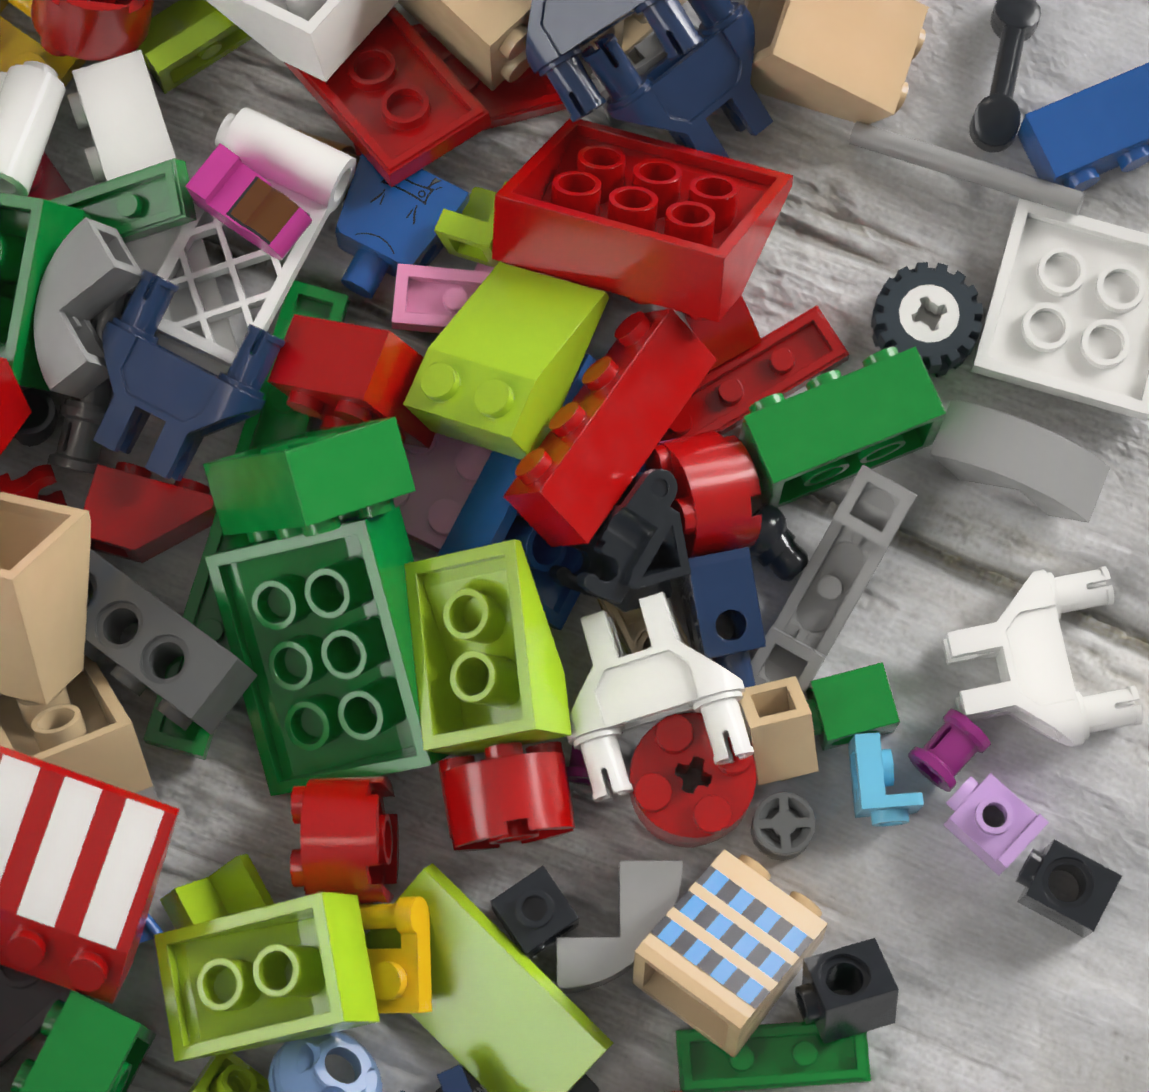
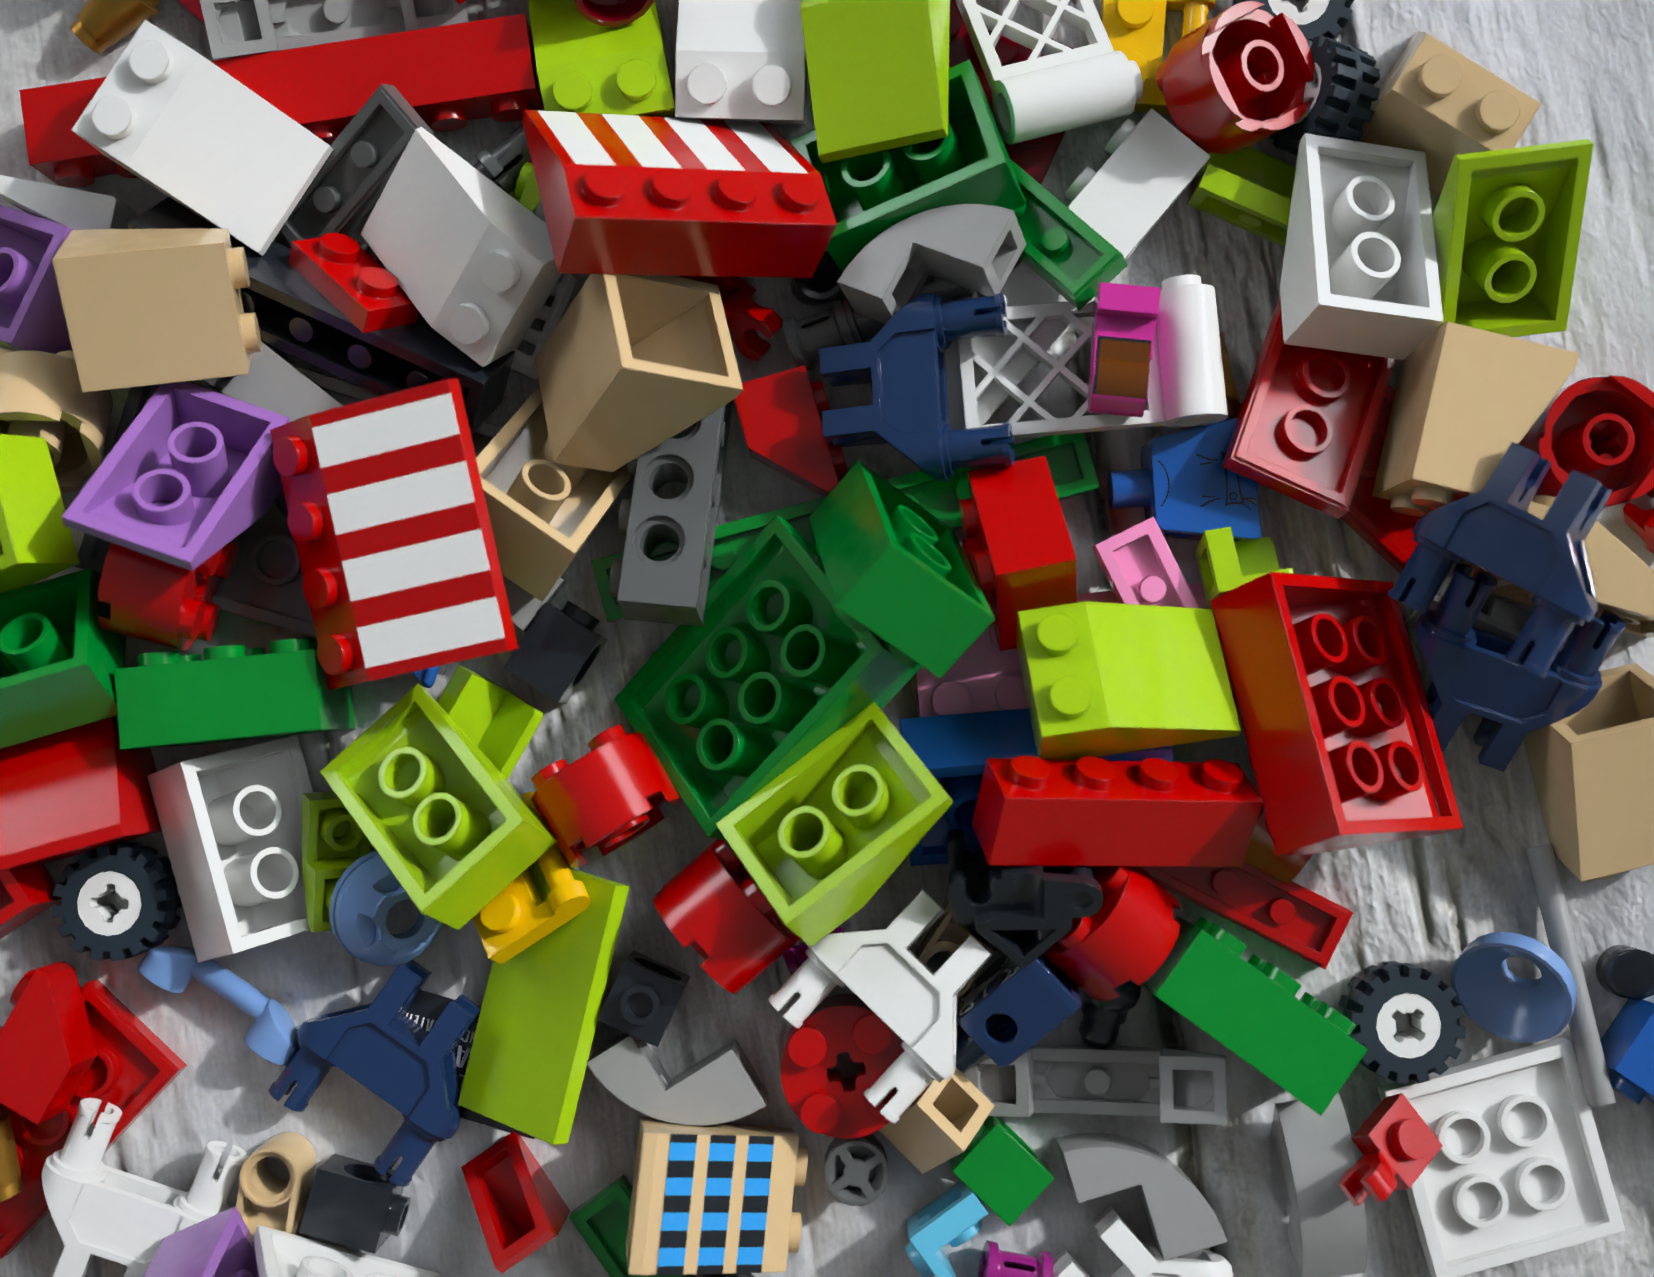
camera: 65 degrees right, 10 degrees up
(206, 817) = (557, 650): none -> black brick
(957, 234) = (1509, 1004): none -> medium blue piece
(960, 586) = (1172, 1204): none -> light grey brick
(1015, 380) = (1394, 1151): none -> red plate

